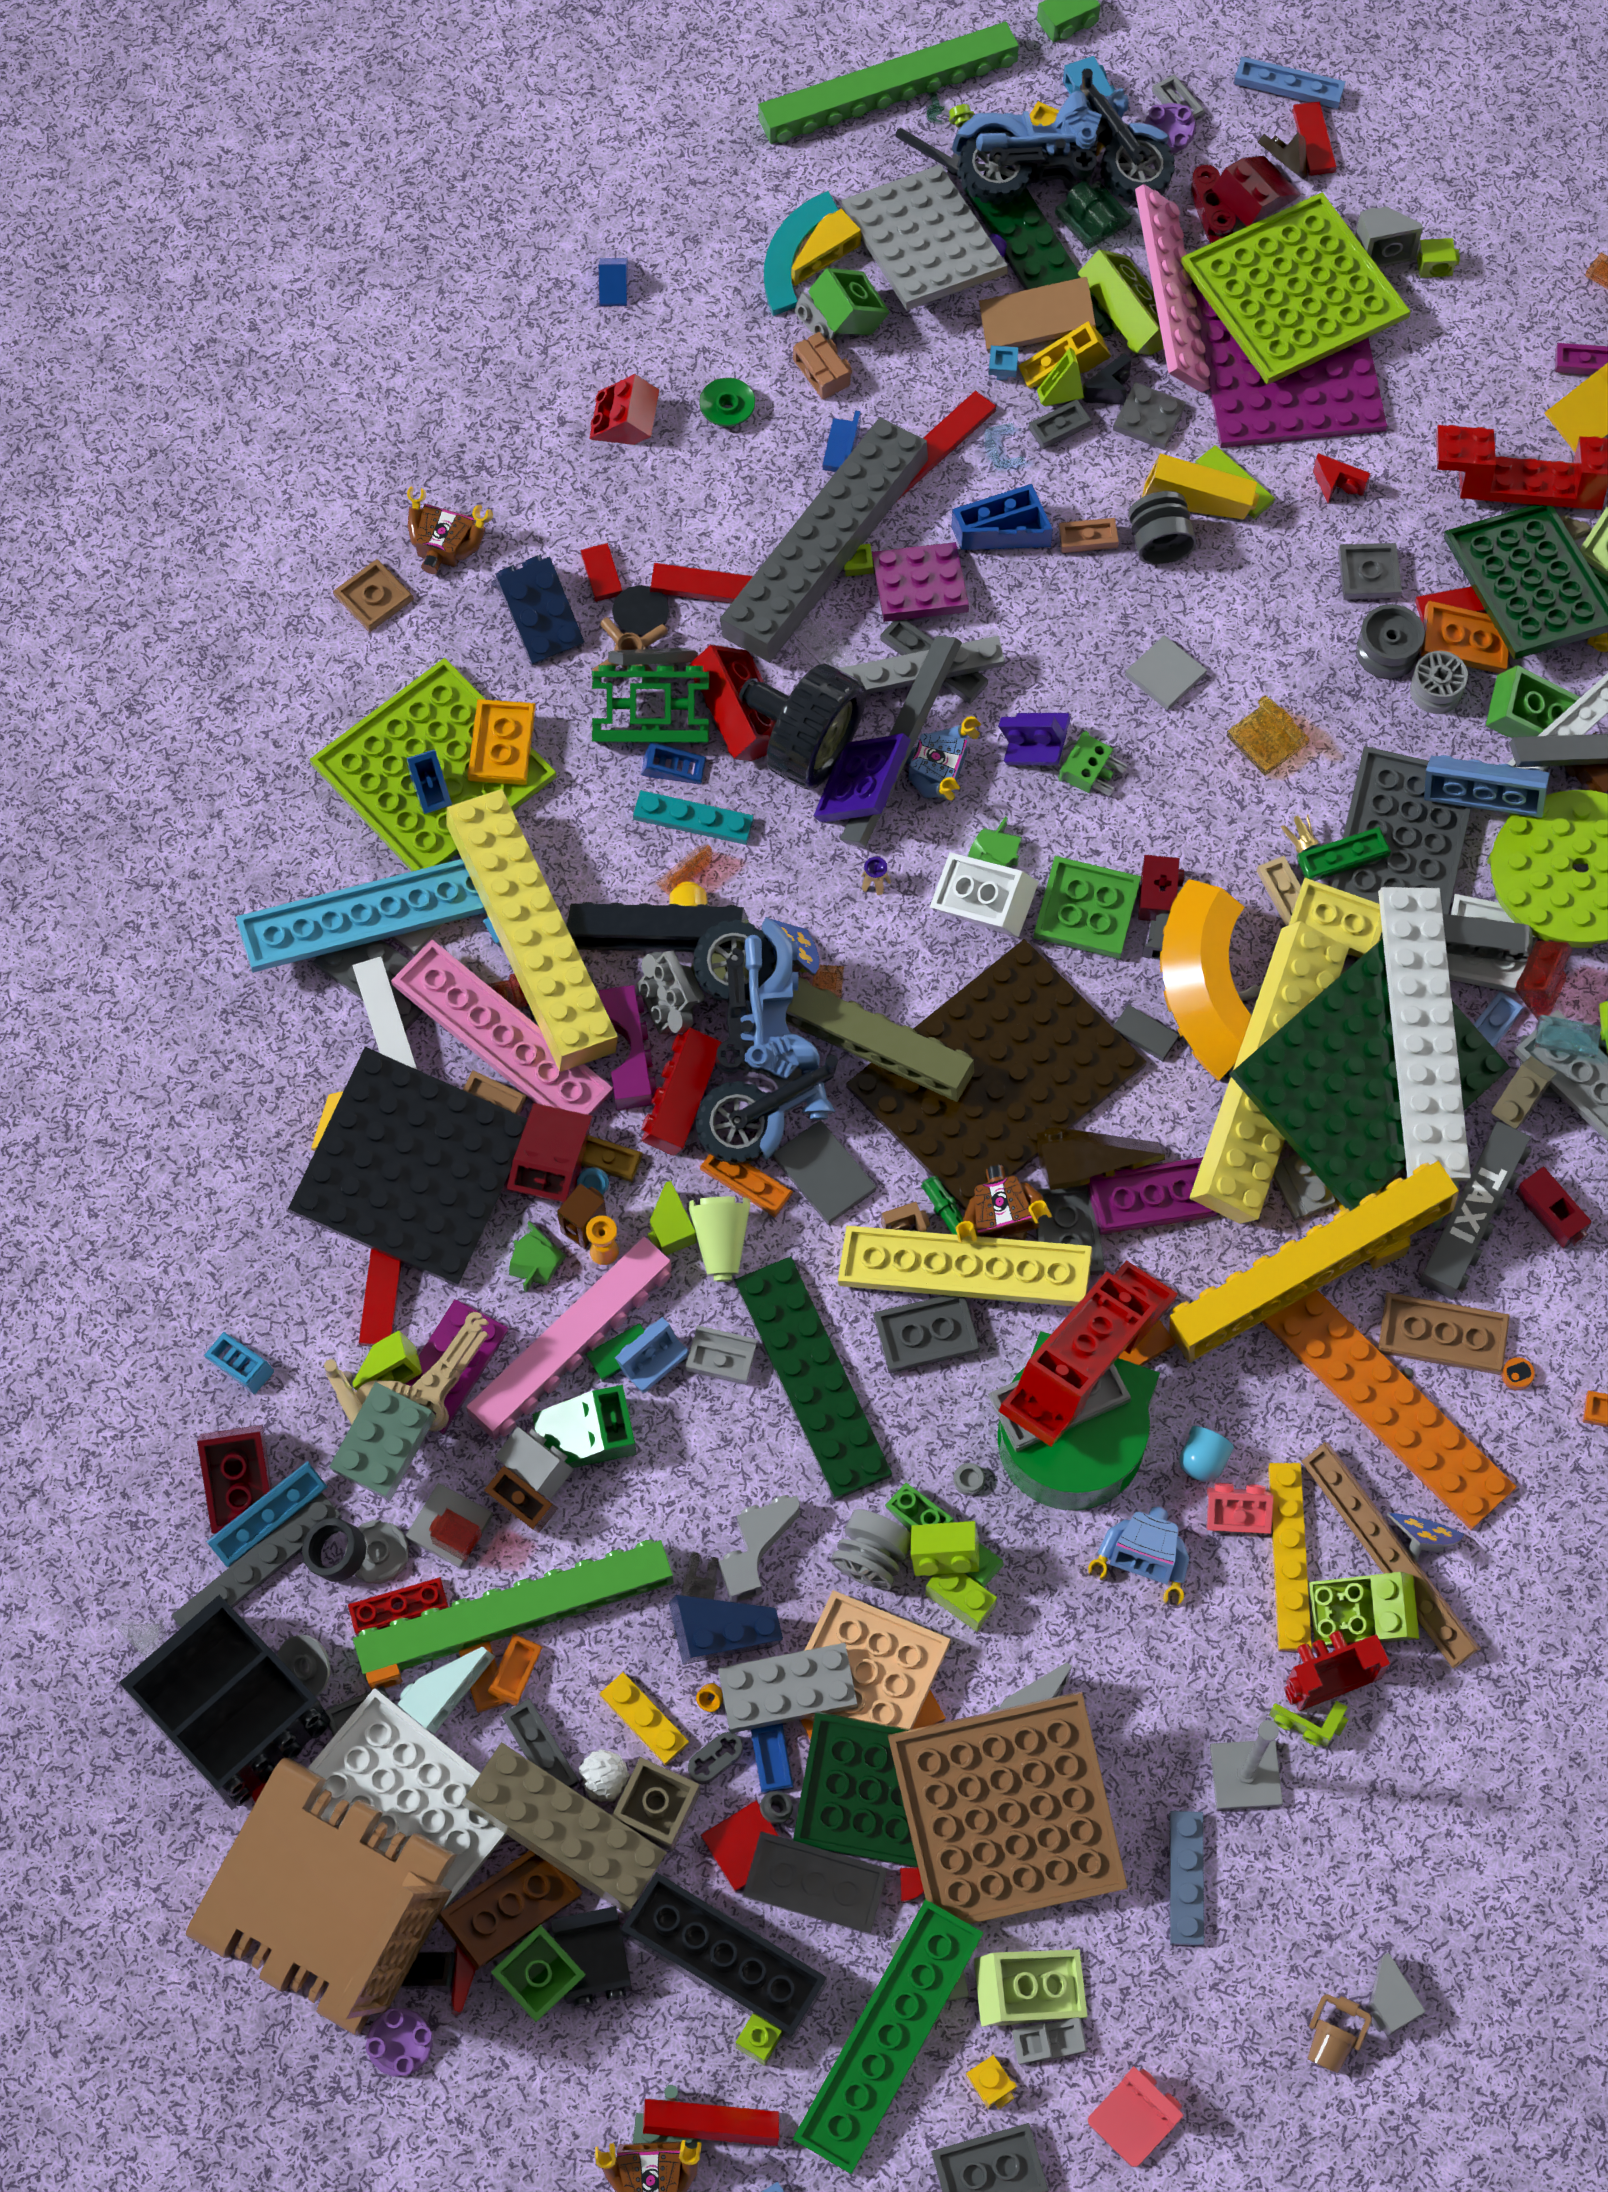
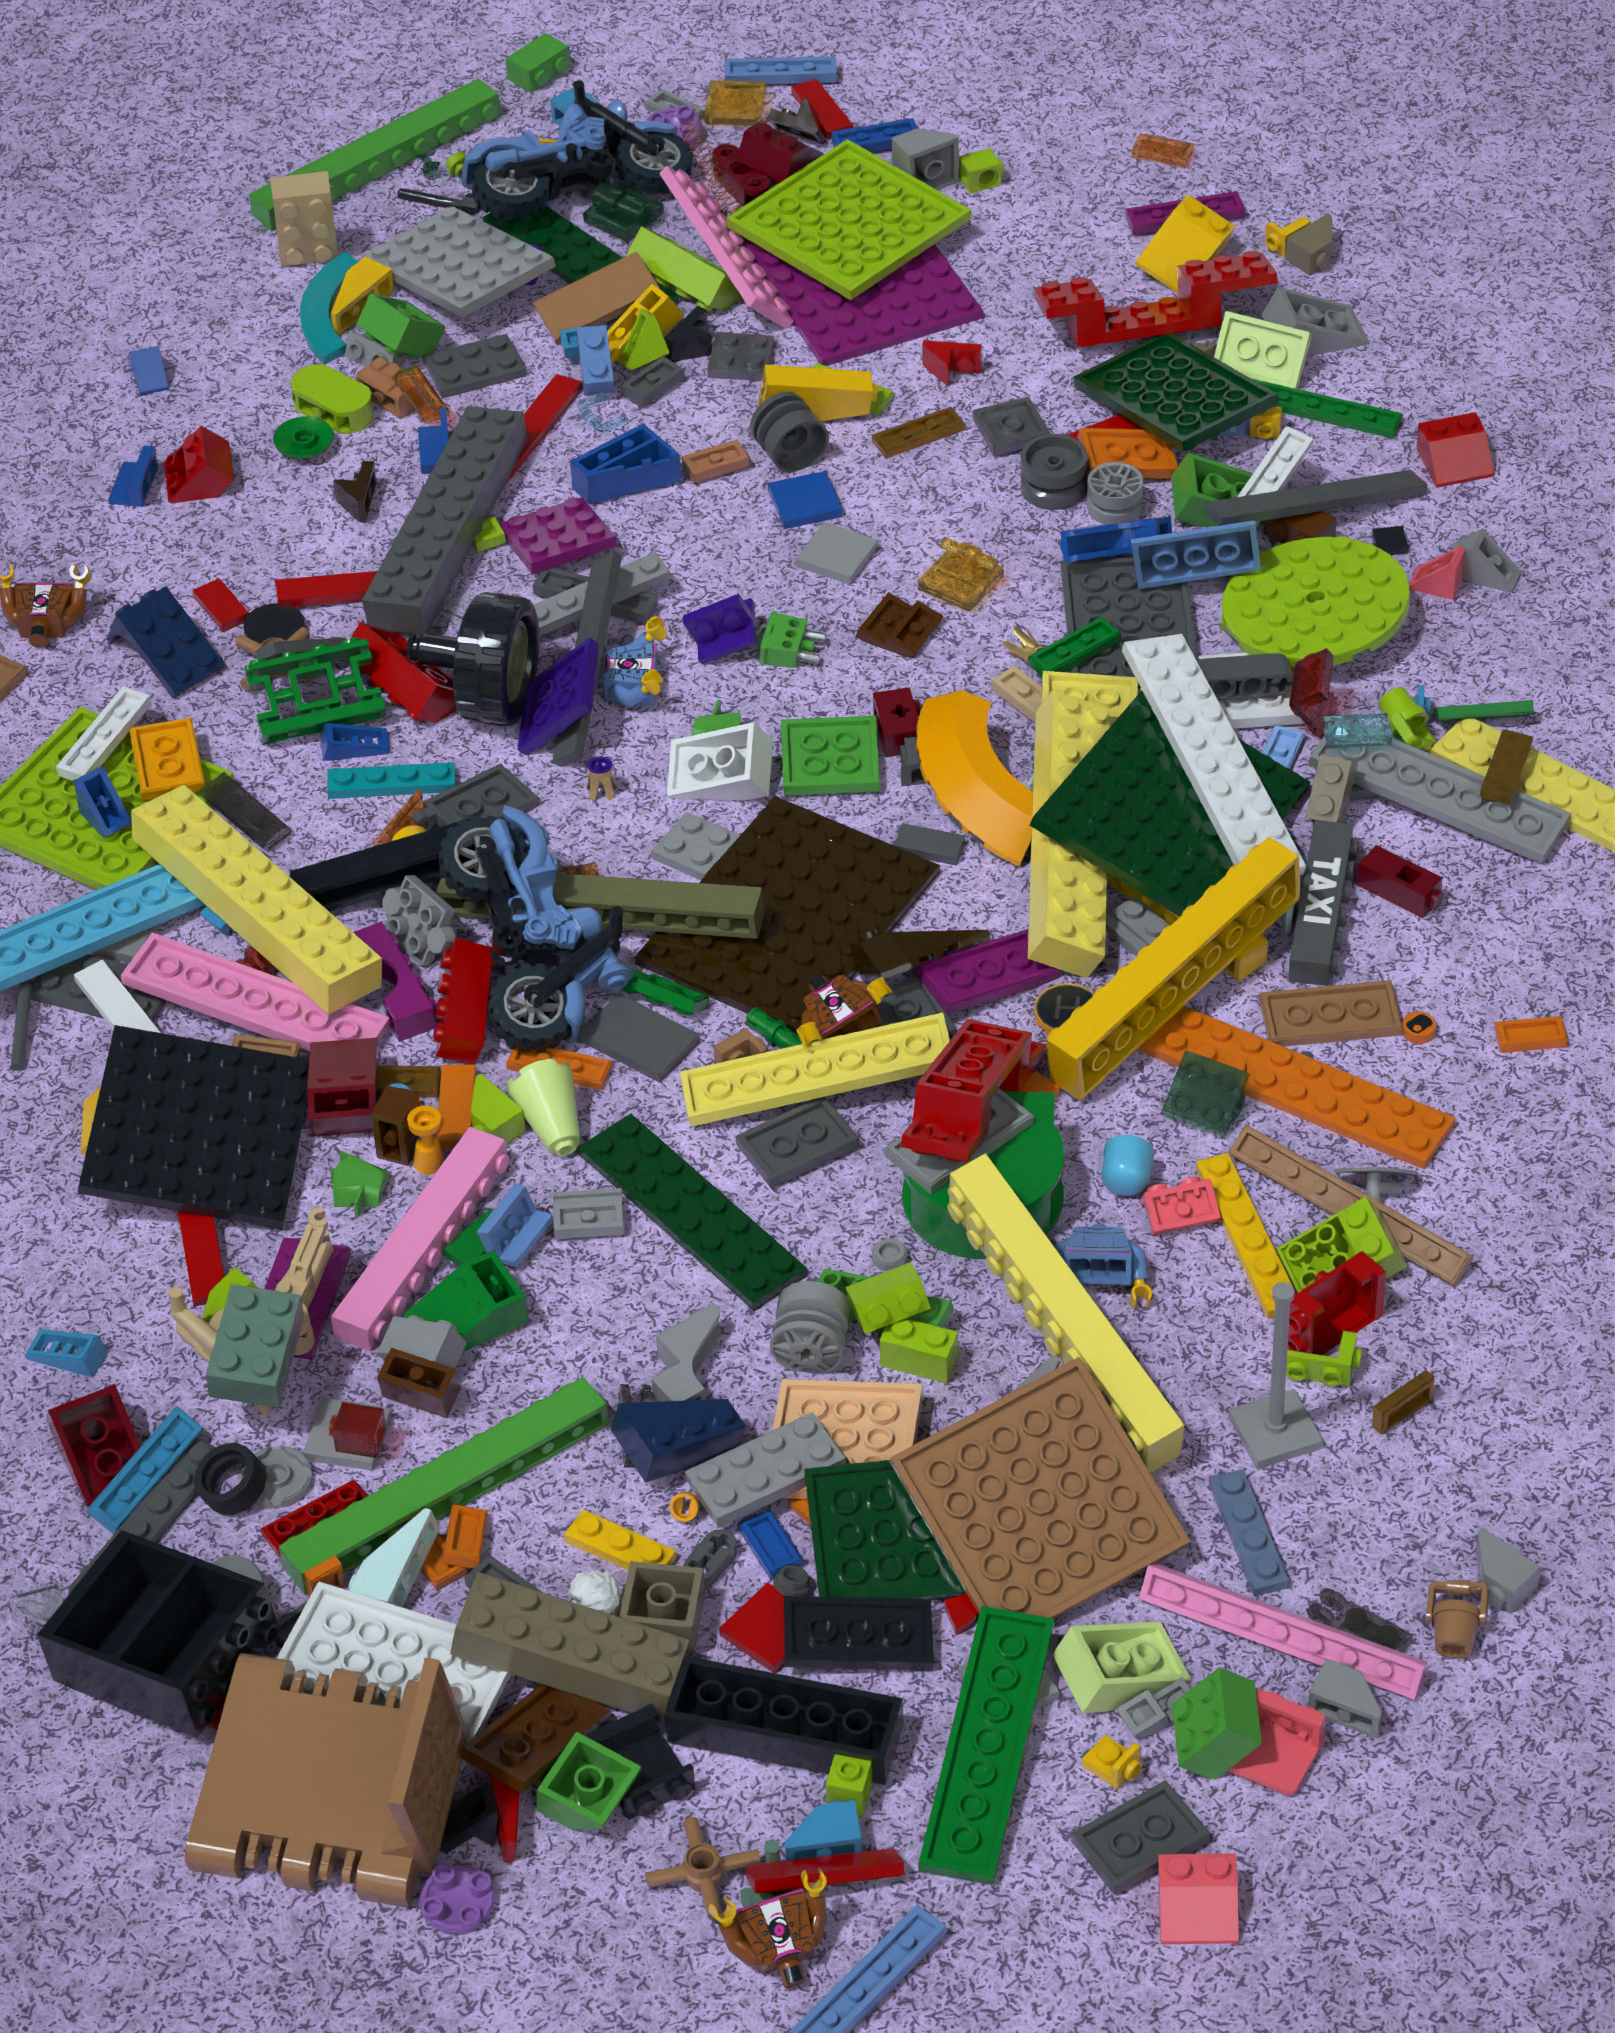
camera: 15 degrees left, 20 degrees down
(296, 999) = (21, 1026): none -> dark grey bar
(453, 701) = (104, 733): none -> white plate
(554, 819) = (245, 812): none -> clear smoke tile
(565, 406) = (135, 479): none -> blue panel
(610, 2097) = (699, 1856): none -> medium nougat bar
(643, 1197) = (455, 1103): none -> orange tile
(725, 2083) = (826, 1832): none -> dark azure slope
(756, 871) = (480, 796): none -> dark grey tile
(757, 483) = (358, 493): none -> dark brown slope
(766, 363) = (333, 398): none -> lime brick
(796, 153) = (304, 218): none -> tan brick
(842, 387) = (420, 393): none -> clear orange tile
(861, 1131) = (662, 990): none -> green hinge
(905, 358) = (474, 366): none -> dark grey plate
(936, 972) = (693, 845): none -> light grey plate
(1011, 391) = (595, 360): none -> medium blue brick
(1088, 2088) = (1216, 1723): none -> bright green brick
(1091, 1622) = (1061, 1307): none -> light yellow brick
(1156, 602) = (805, 500): none -> blue tile
(1181, 1998) = (1281, 1629): none -> bright pink plate
(1192, 185) = (713, 166): none -> piece
(1196, 774) = (899, 626): none -> reddish brown slope
(1208, 1258) = (1057, 1004): none -> black tile
(1211, 2086) = (1346, 1698): none -> light grey slope
(1235, 110) = (735, 102): none -> clear yellow plate
(1252, 2013) = (1358, 1621): none -> clear smoke hinge
(1283, 552) = (918, 432): none -> pearl gold tile
(1300, 1396) = (1206, 1093): none -> clear green plate
(1354, 188) = (876, 136): none -> blue plate
(1366, 1787) = (1403, 1402): none -> pearl gold tile
(1416, 738) = (1109, 539): none -> blue arch

